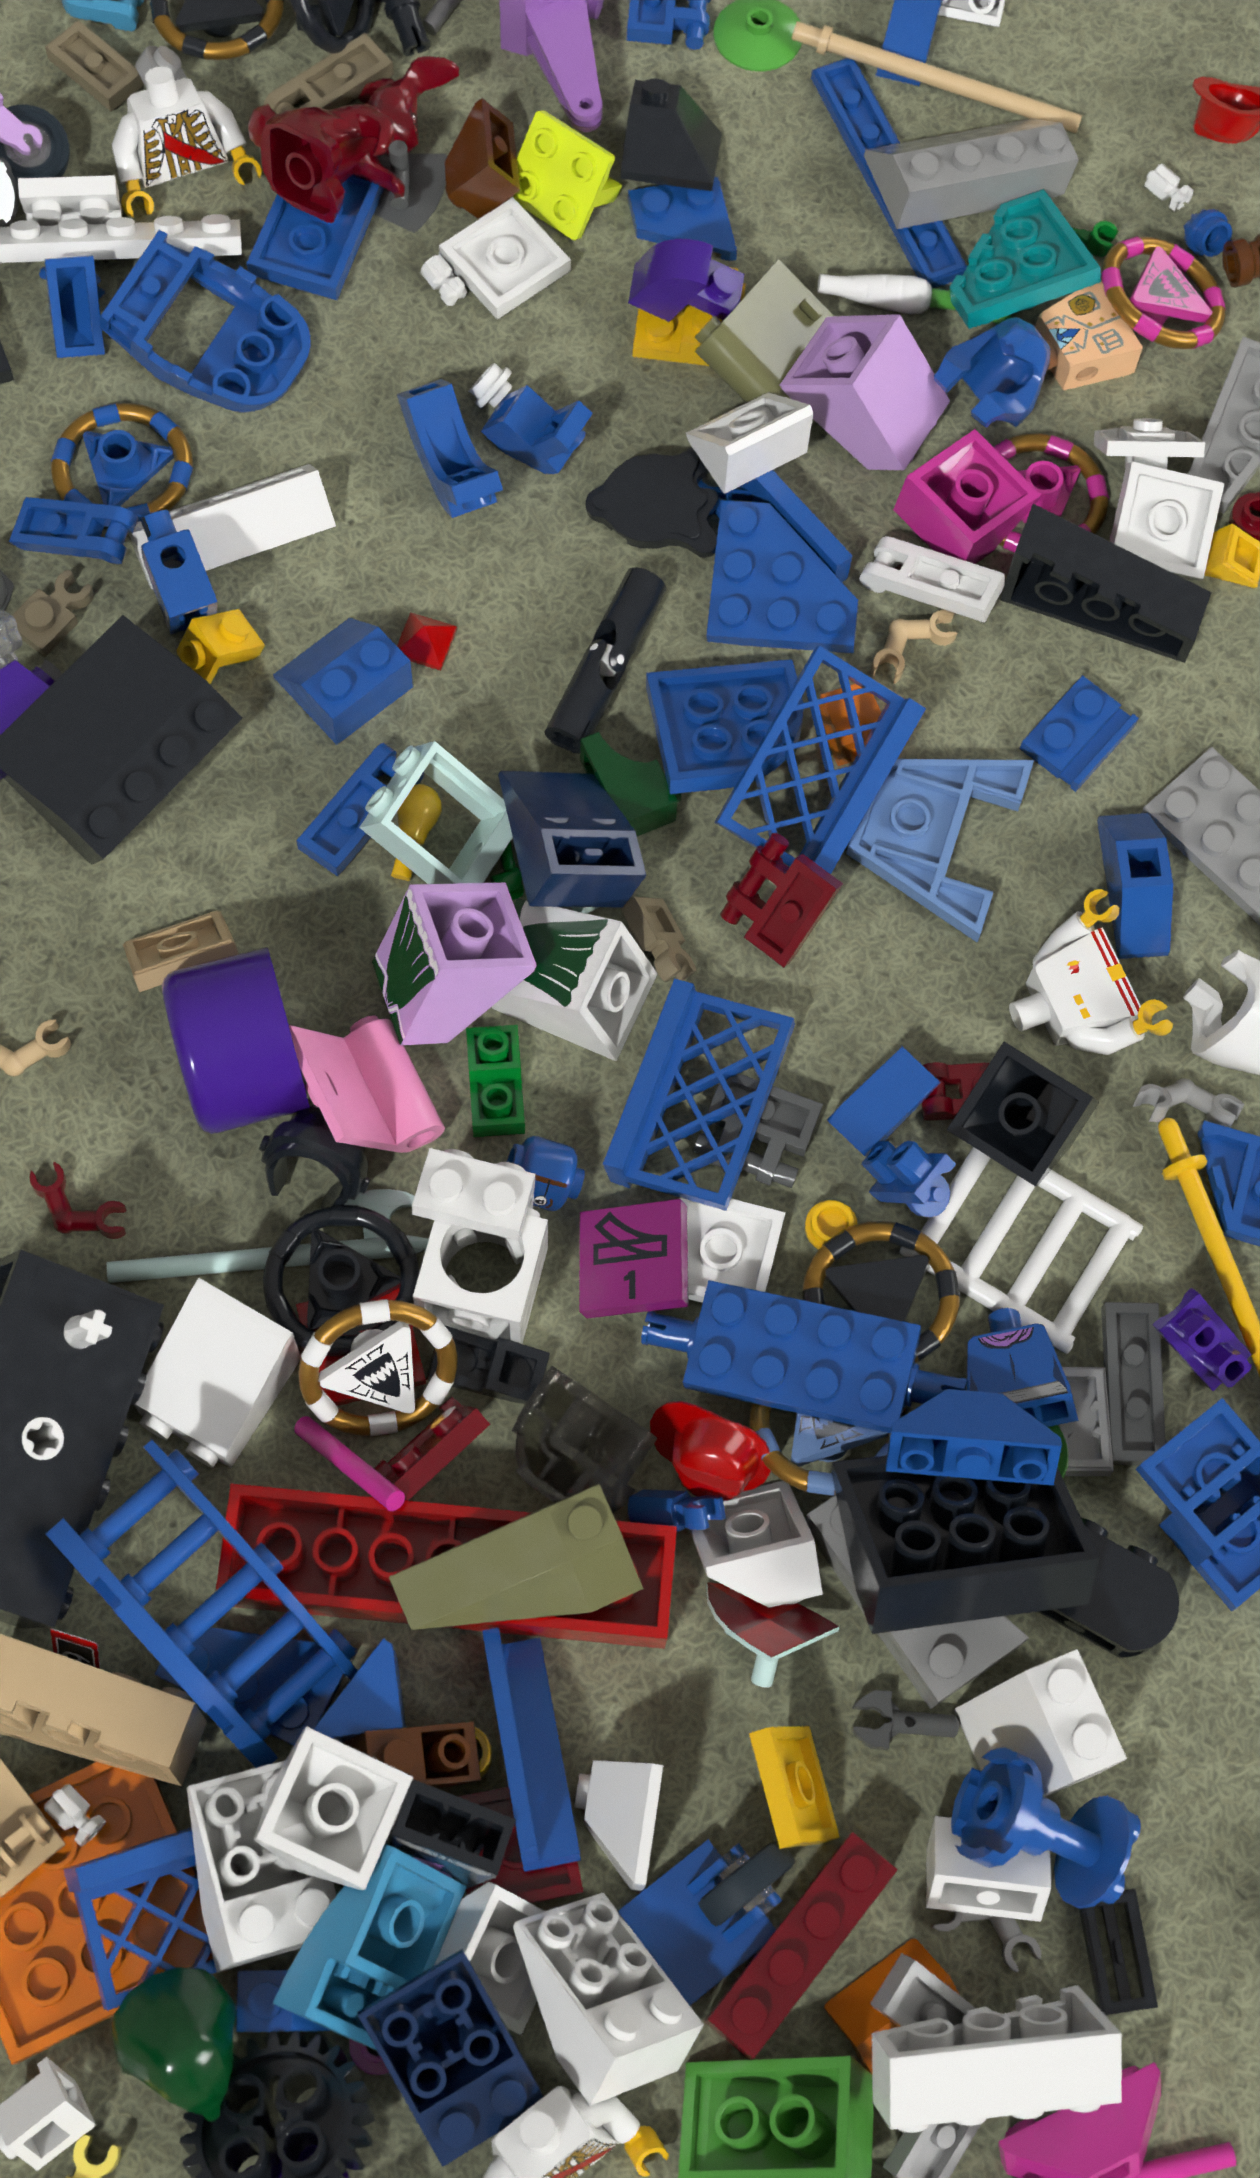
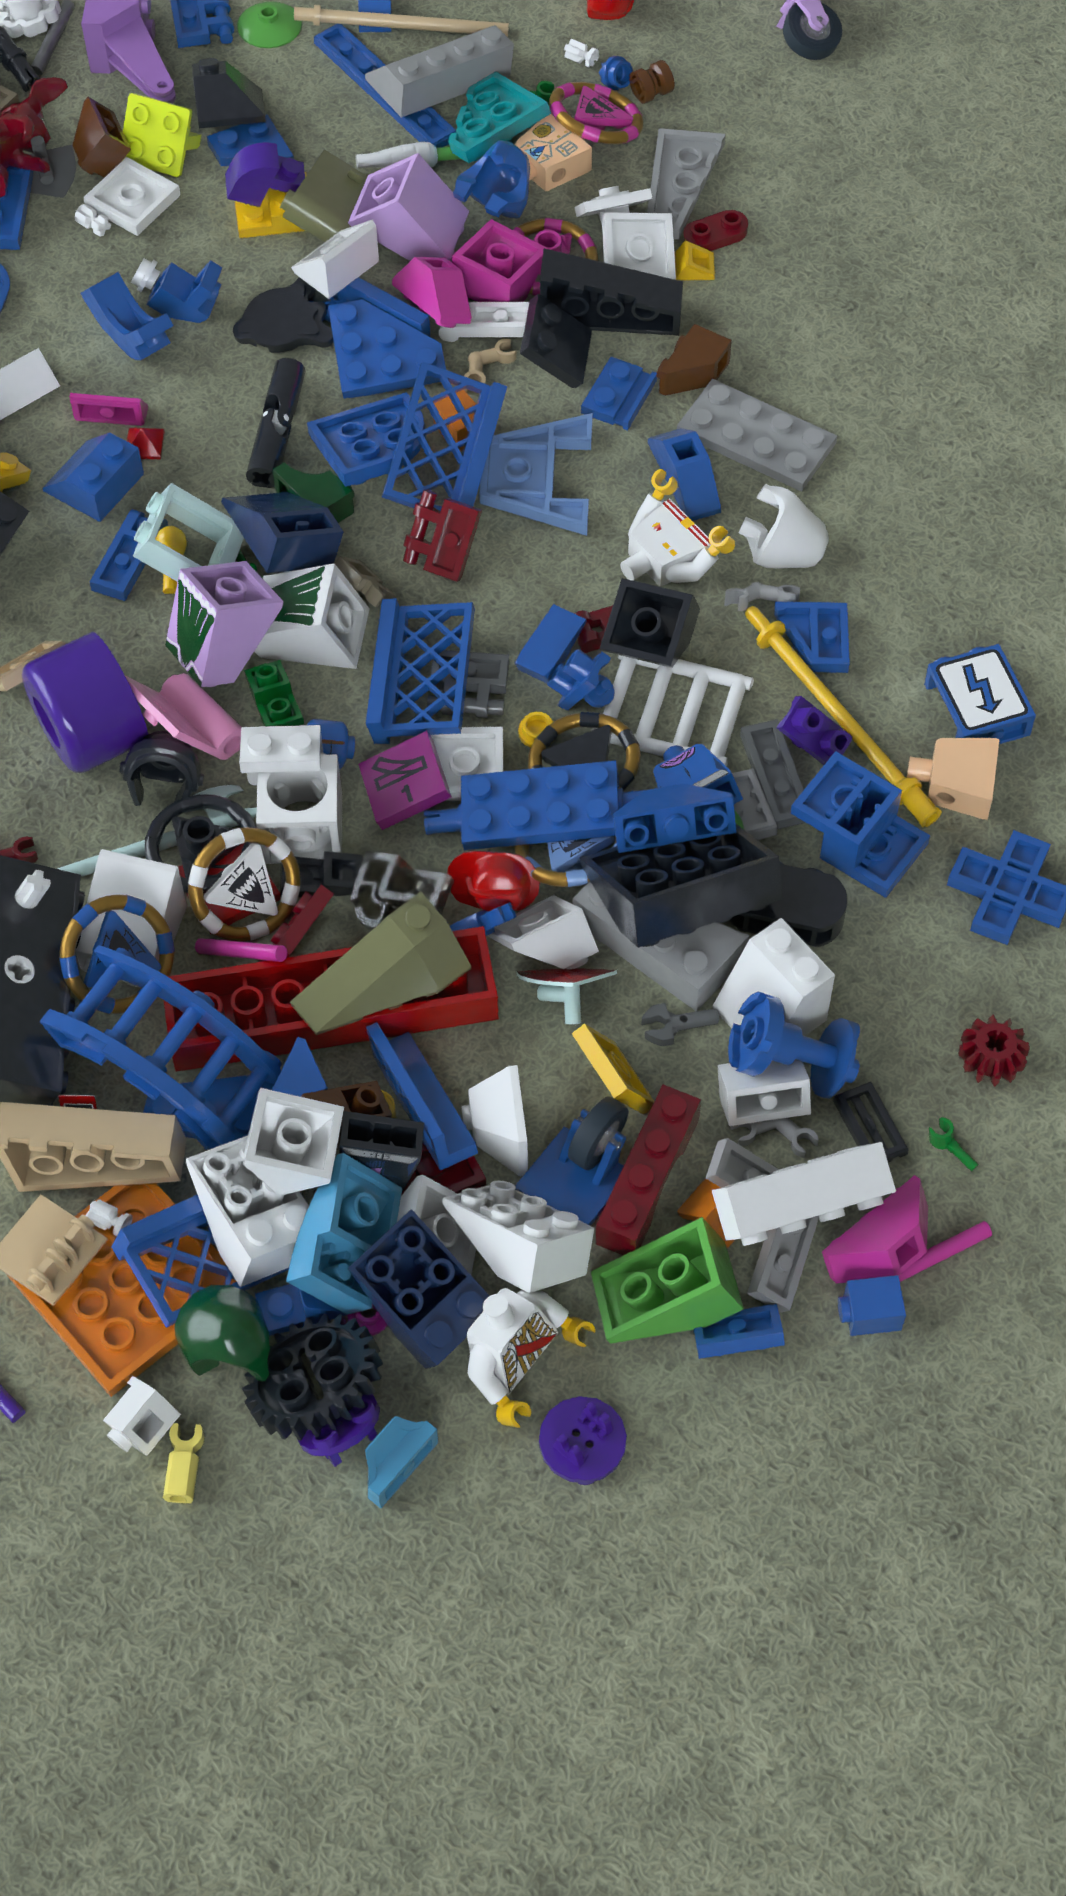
camera: 10 degrees left, 10 degrees down
(183, 1427) = (114, 935): none -> piece
(390, 580) = (108, 409): none -> dark pink slope
(872, 519) = (436, 288): none -> dark pink slope
(1013, 638) = (556, 341): none -> black plate
(1196, 717) = (695, 361): none -> reddish brown slope
(1219, 2014) = (948, 1142): none -> green hand

